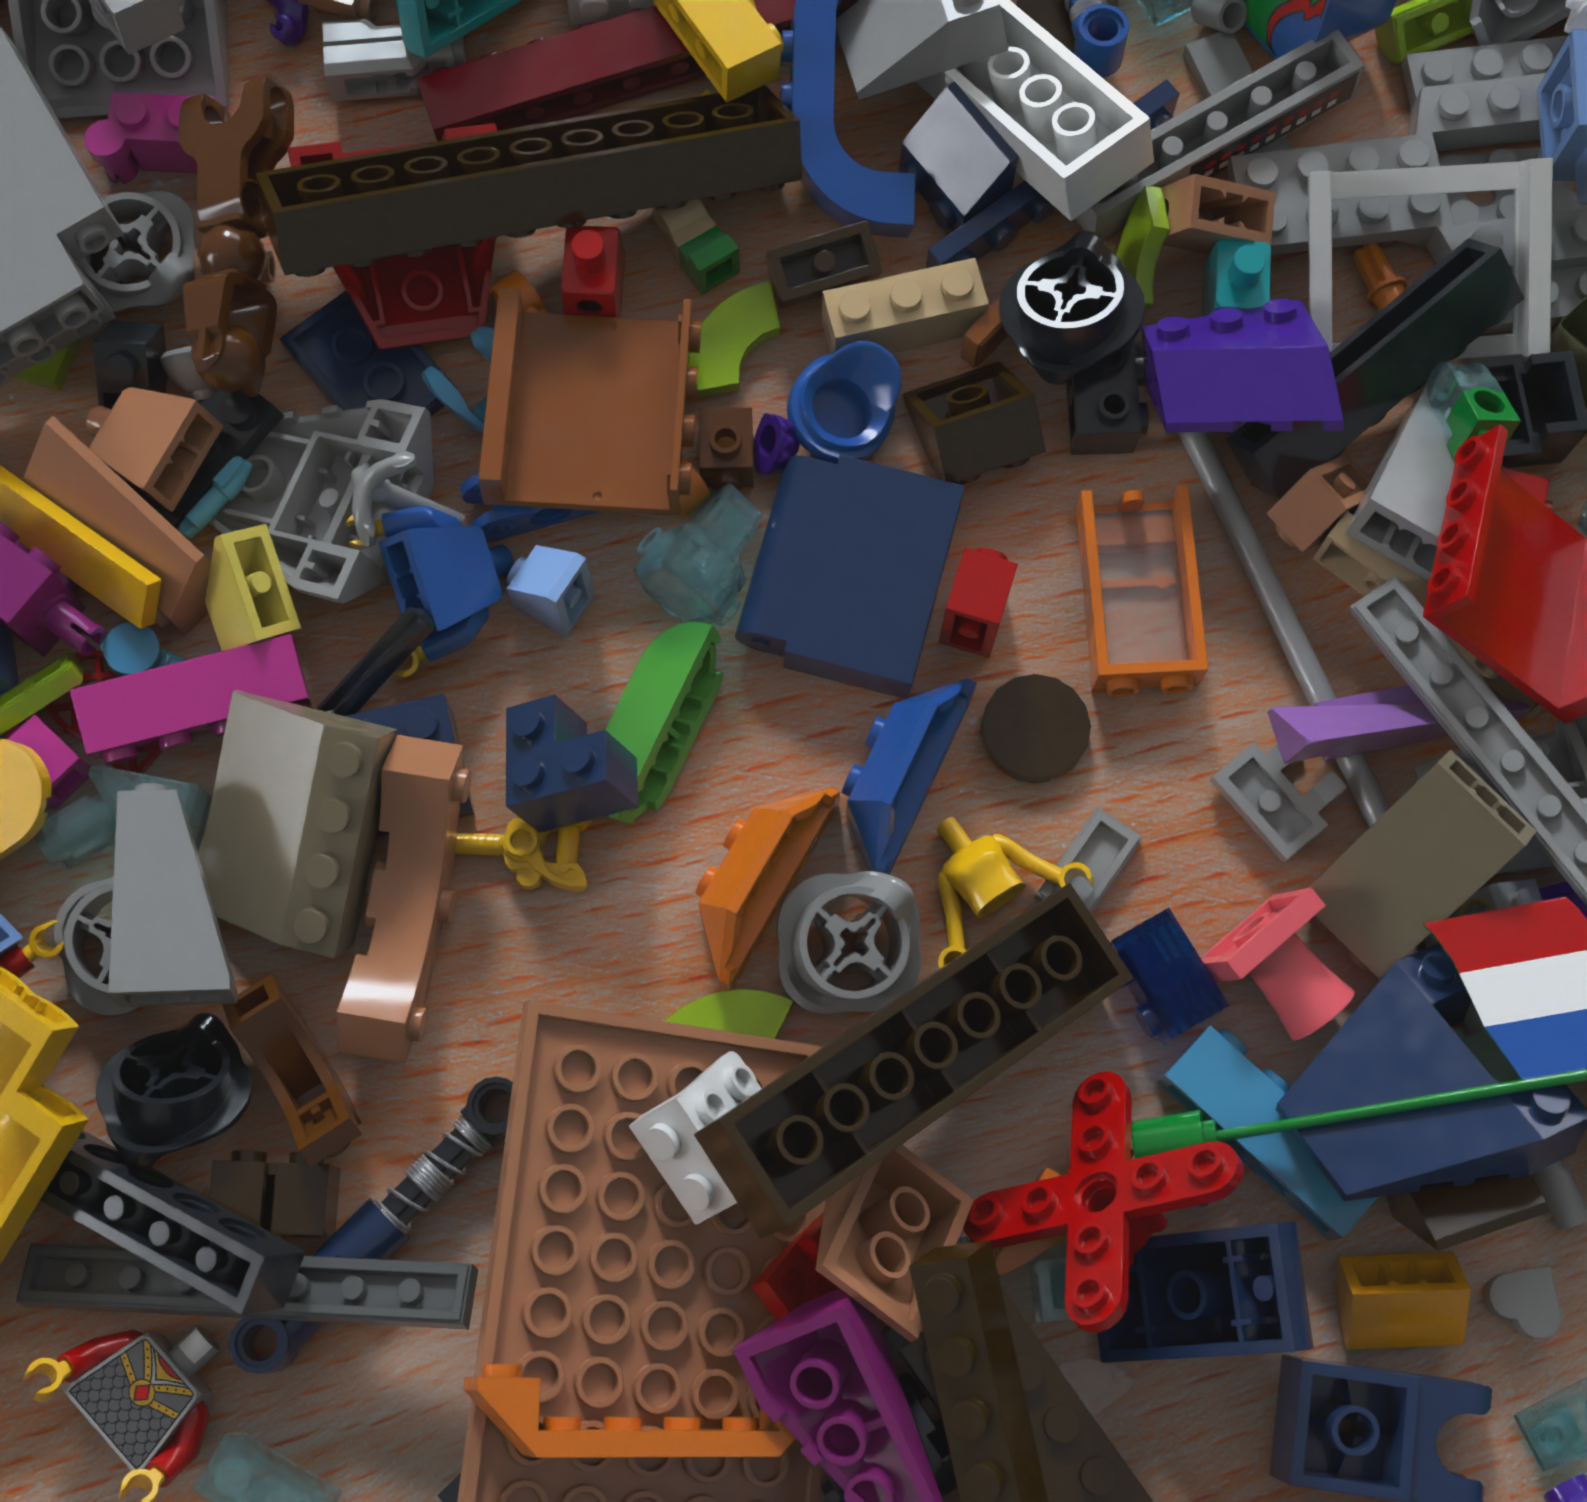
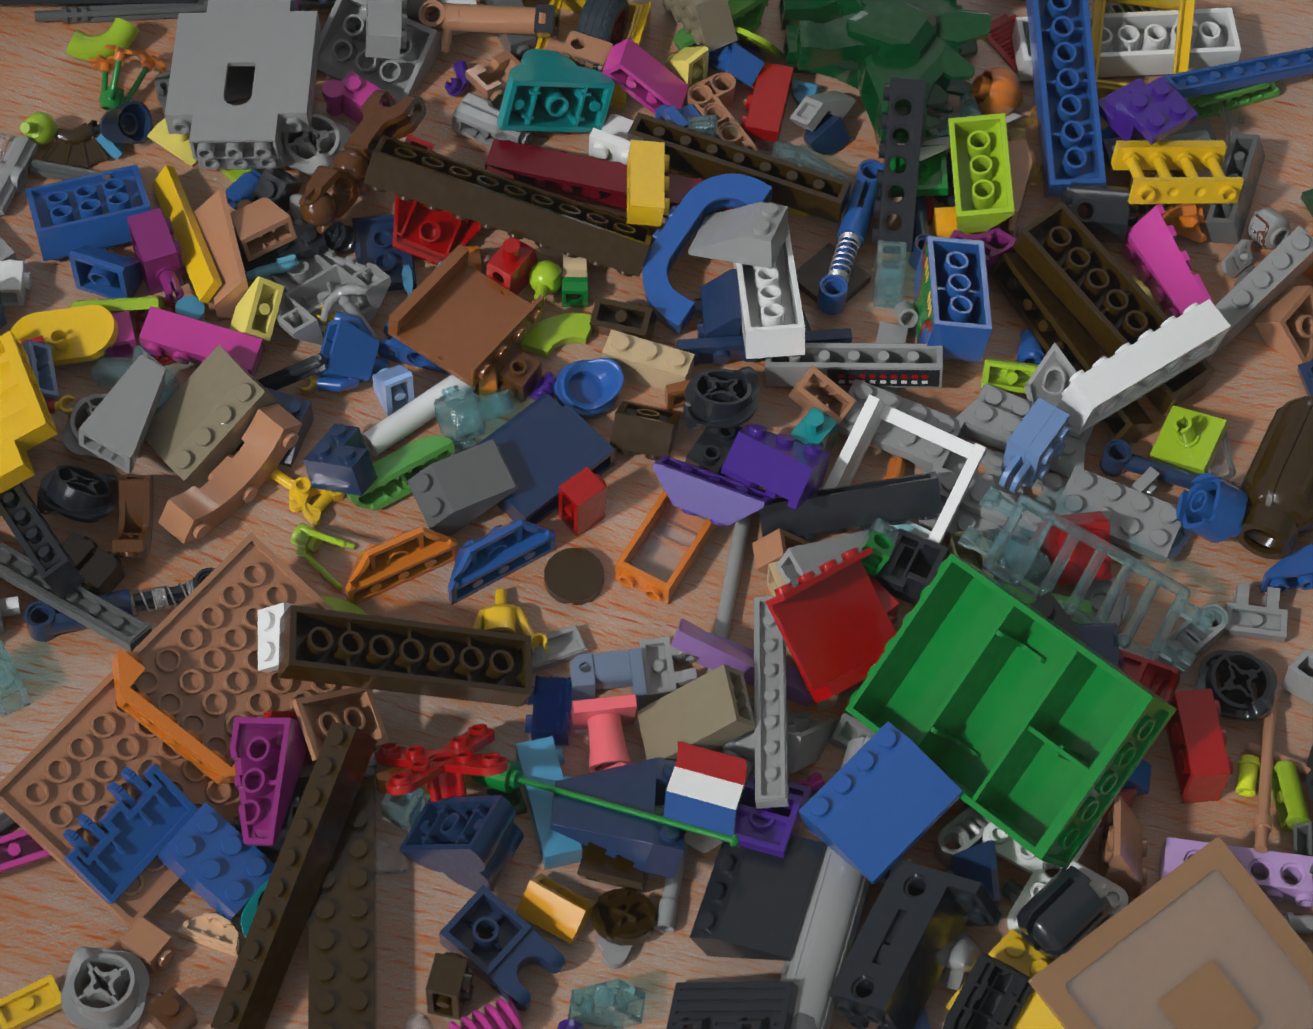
camera: 30 degrees right, 15 degrees down
(73, 389) = (242, 188): none -> blue brick
(287, 381) = (340, 237): none -> black wheel
(595, 921) = (310, 539): none -> lime plant
(606, 617) = (408, 417): none -> white piece
(653, 266) = (545, 278): none -> lime piece
(782, 691) = (462, 487): none -> dark grey slope
(888, 900) = (409, 581): light grey piece -> none
(1143, 238) = (778, 396): lime tile -> none
(1176, 475) = (707, 493): none -> wedge
(1209, 854) = (608, 671): none -> sand blue piece
(1519, 1262) = (624, 917): none -> dark brown tile

